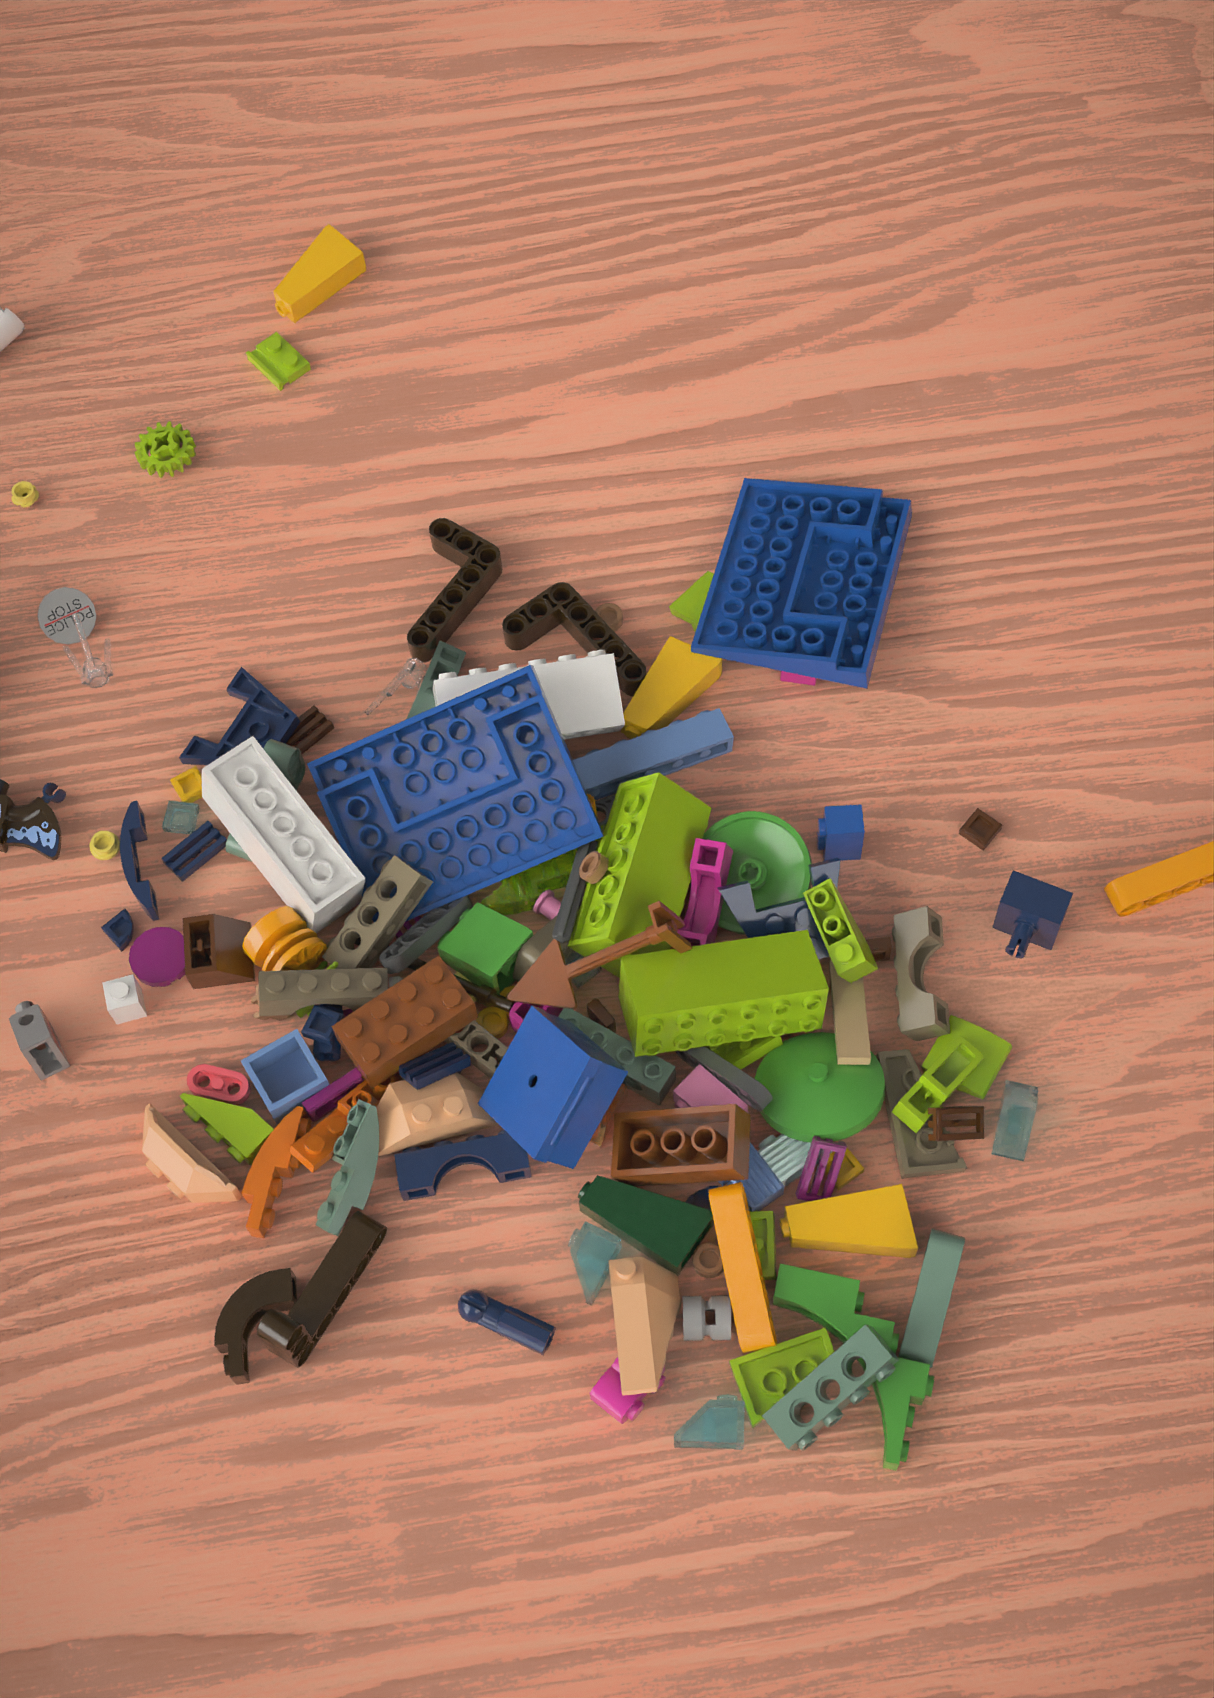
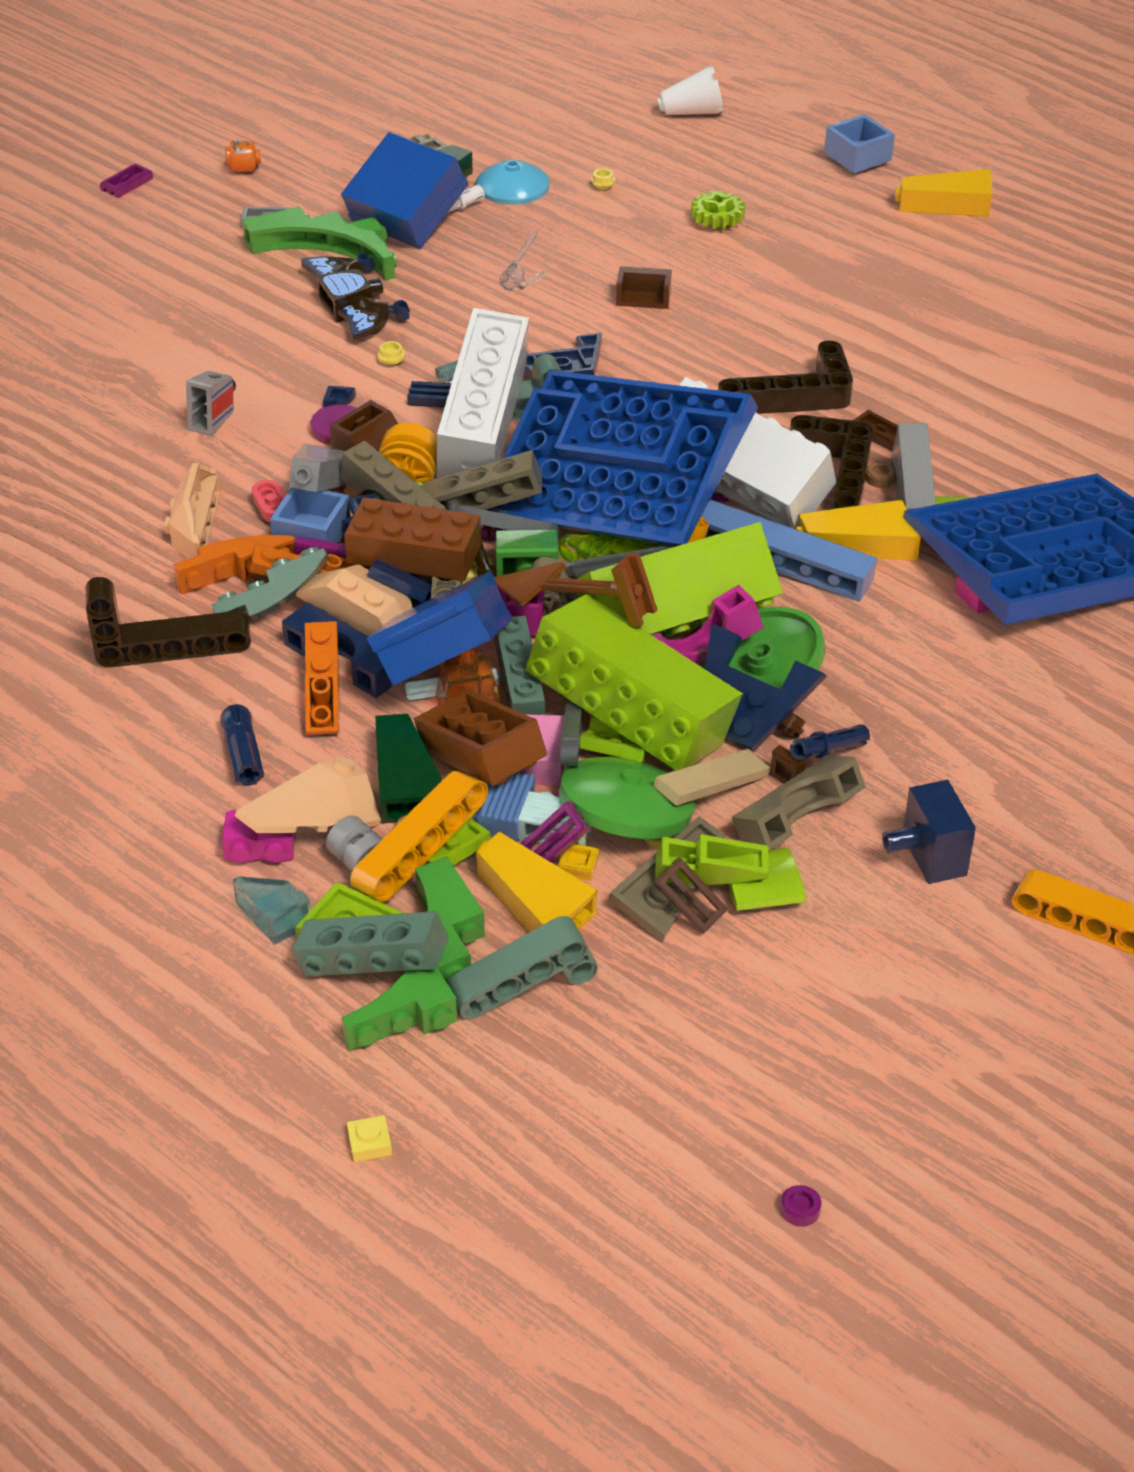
camera: 45 degrees right, 20 degrees down
(57, 614) = (544, 245): light grey piece -> none
(124, 999) = (285, 421): white brick -> none
(134, 831) = (412, 356): dark blue slope -> none
(191, 278) = (859, 143): none -> medium blue piece
(215, 588) = (643, 287): none -> reddish brown panel
(230, 1024) = (316, 468): none -> light grey slope
(235, 1125) = (245, 516): lime slope -> none
(244, 1311) = (133, 607): dark brown arch -> none
(278, 360) = (858, 218): lime plate -> none
(490, 1209) = (322, 678): none -> orange slope
(544, 580) = (883, 429): none -> reddish brown tile
(590, 1255) = (346, 744): clear light blue slope -> none
(593, 867) = (649, 548): medium nougat tile -> none
(645, 601) = (913, 465): none -> light grey slope
(840, 932) = (764, 723): lime slope -> none
(841, 832) = (860, 682): blue brick -> none
(882, 912) = (822, 744): none -> dark blue pin
(980, 829) = (979, 775): reddish brown tile -> none
(996, 1518) = (369, 1138): none -> light yellow plate
(1015, 1120) = (741, 937): clear light blue slope -> none

